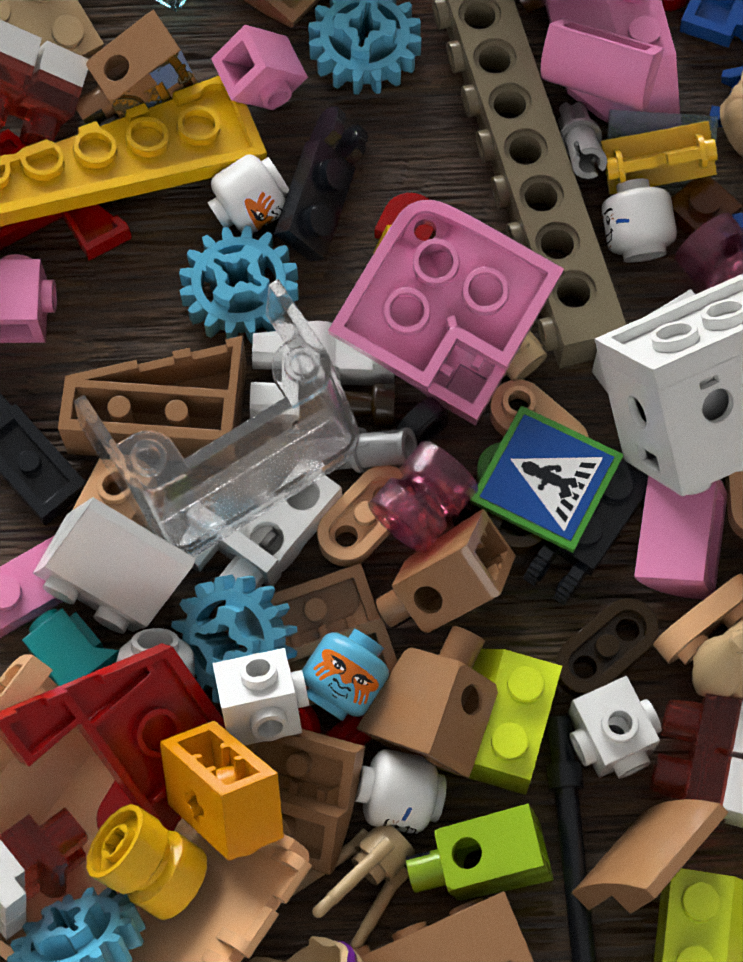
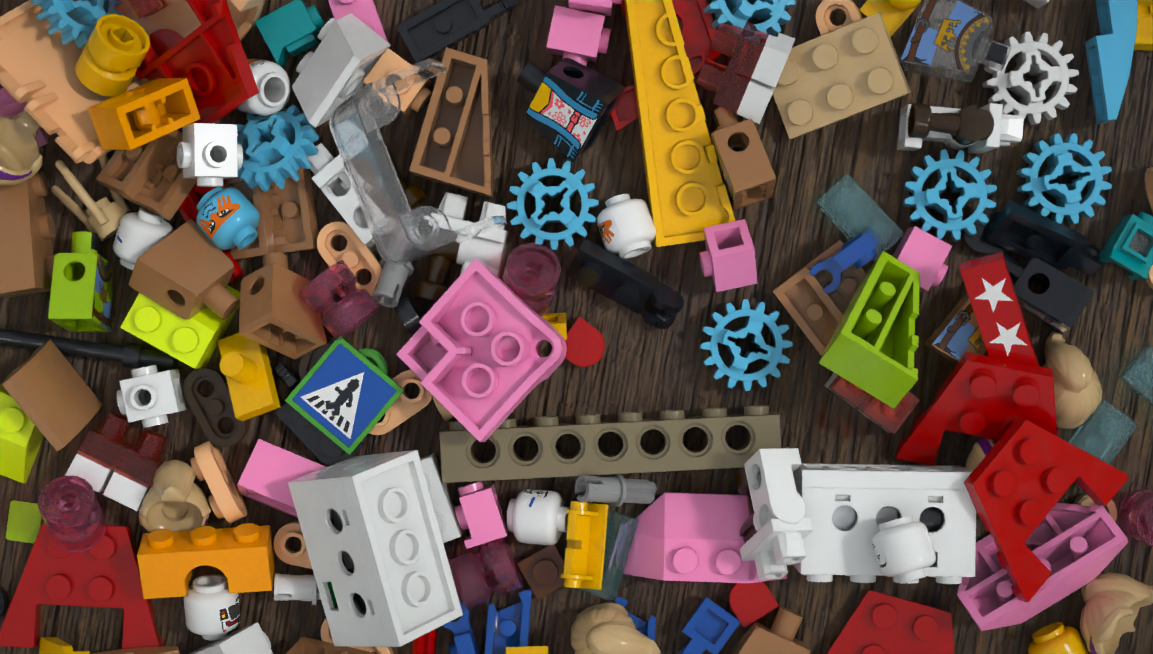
camera: 105 degrees right, 20 degrees up
(105, 278) = (569, 104): none -> torso
(329, 269) = (533, 275): none -> clear pink wheel
(551, 607) = (248, 376): none -> yellow tile
(600, 63) = (665, 520): bright pink brick -> none
(655, 282) = (480, 514): none -> bright pink brick

